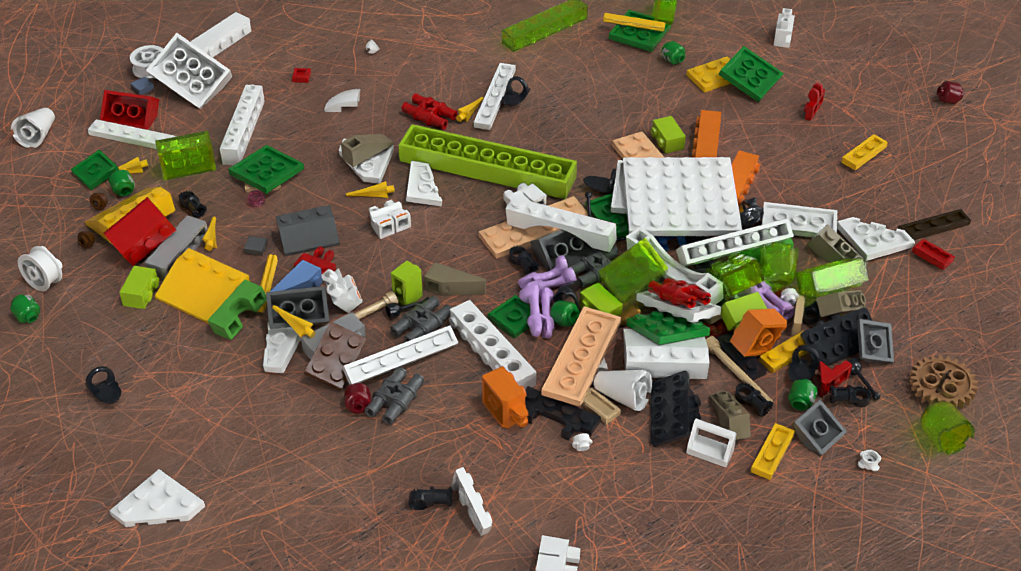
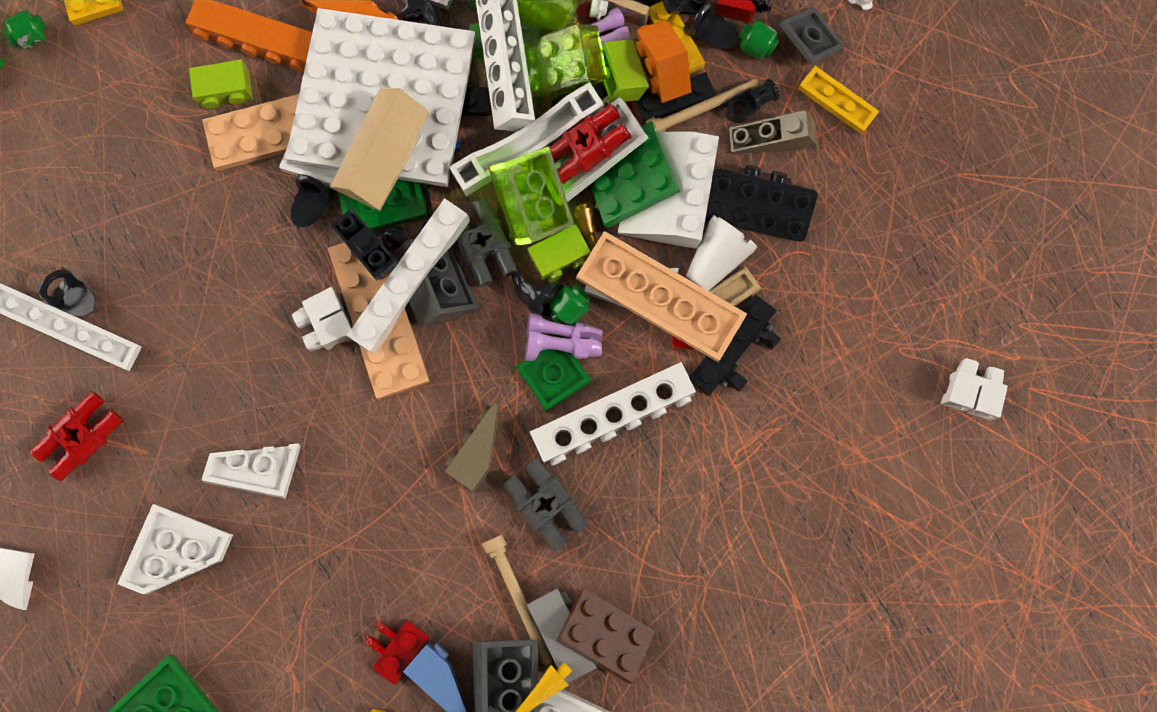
camera: 80 degrees left, 35 degrees up
(307, 230) = (327, 659): dark grey slope -> none
(342, 290) = (467, 623): white hips -> none
(357, 397) = (681, 610): dark red head -> none
(362, 147) = (161, 549): dark tan slope -> none
(377, 190) = (251, 536): yellow piece -> none
(389, 219) = (315, 520): white hips -> none
(394, 310) = (516, 540): black hinge -> none
(394, 395) = (696, 555): dark grey pin -> none
(400, 355) = (615, 543): white plate -> none
(407, 283) = (482, 517): lime brick -> none
(429, 498) = (859, 524): black connector -> none
(463, 483) = (883, 477): white wing -> none
(467, 111) = (91, 378): yellow piece -> none
(488, 160) = (227, 364): lime brick -> none
(504, 398) = (724, 410): orange hinge -> none
(523, 259) = (449, 342): black connector -> none
(560, 276) = (479, 295): lavender piece -> none
(577, 200) = (364, 244): none -> black slope
(581, 442) = (793, 325): white plate -> none
(639, 191) = (380, 148): none -> tan slope
(708, 448) = (825, 166): white tile -> none

